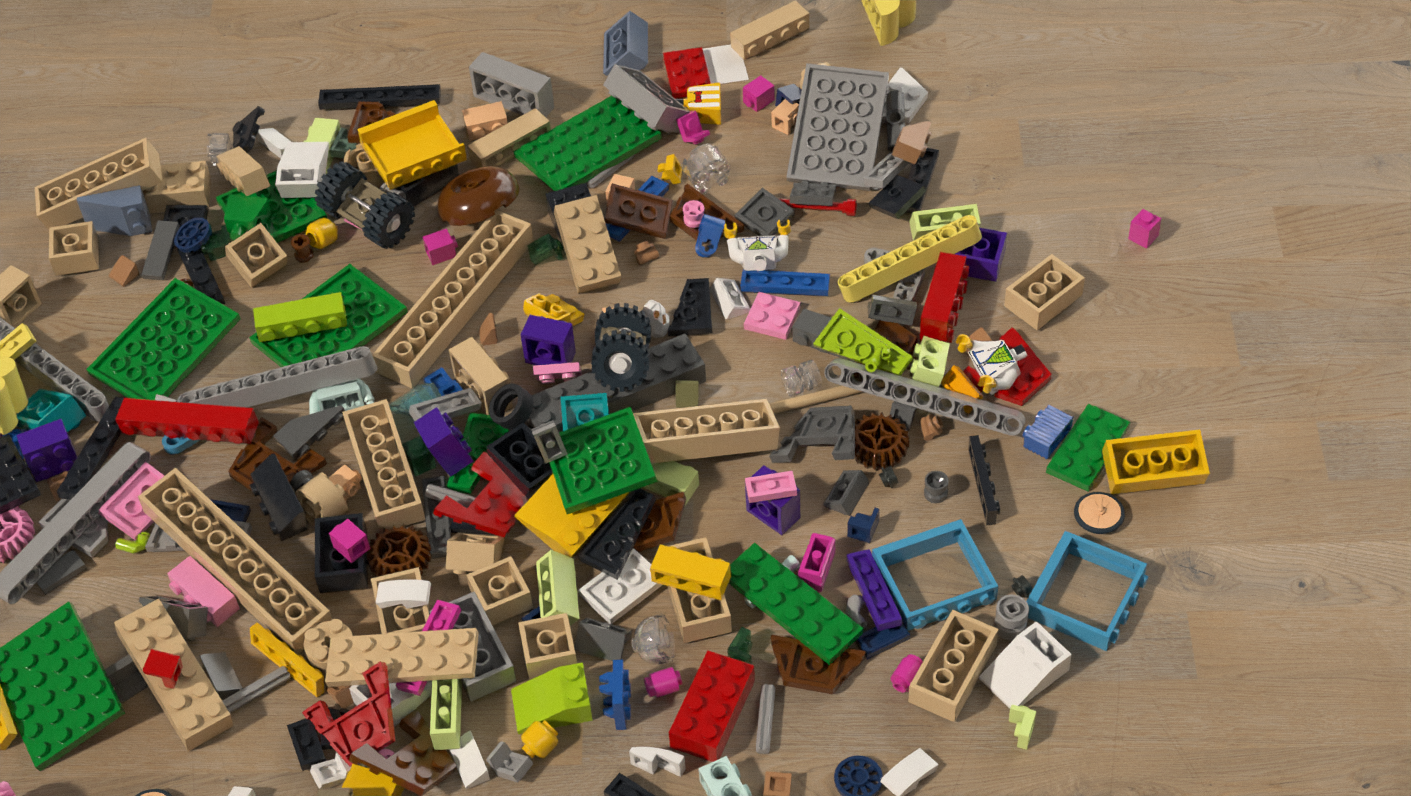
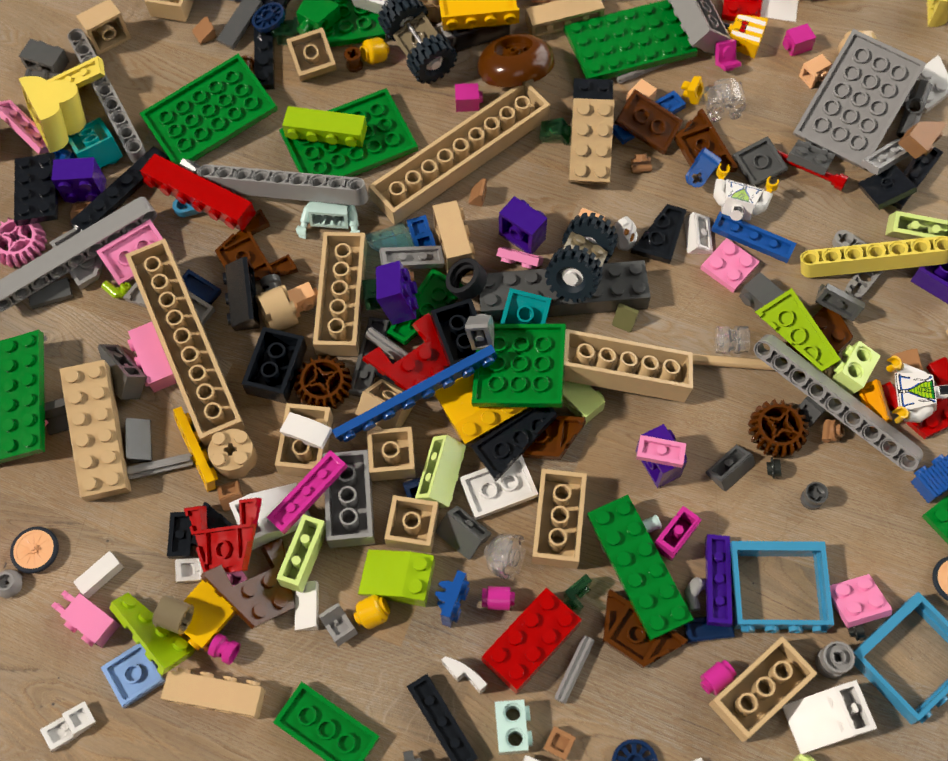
camera: 20 degrees right, 15 degrees up
(163, 666) = (79, 429): red panel -> none
(303, 431) = (287, 237): dark grey slope -> none
(349, 540) = (280, 361): dark pink brick -> none
(407, 656) = (282, 494): tan plate -> none
(499, 524) = (422, 390): none -> blue plate
(552, 308) = (539, 194): yellow brick -> none
(690, 572) = (559, 506): yellow brick -> none
(693, 213) = (699, 138): bright pink wheel -> none
(790, 92) = (828, 51): panel -> none
(821, 426) = (734, 397): dark grey wing -> none
(863, 526) = (733, 508): dark blue panel -> none
(876, 359) = (805, 352): lime arm -> none
(944, 298) = (893, 309): red brick -> none
(985, 487) = (859, 512): black plate -> none
(1015, 560) = (859, 601): none -> bright pink plate

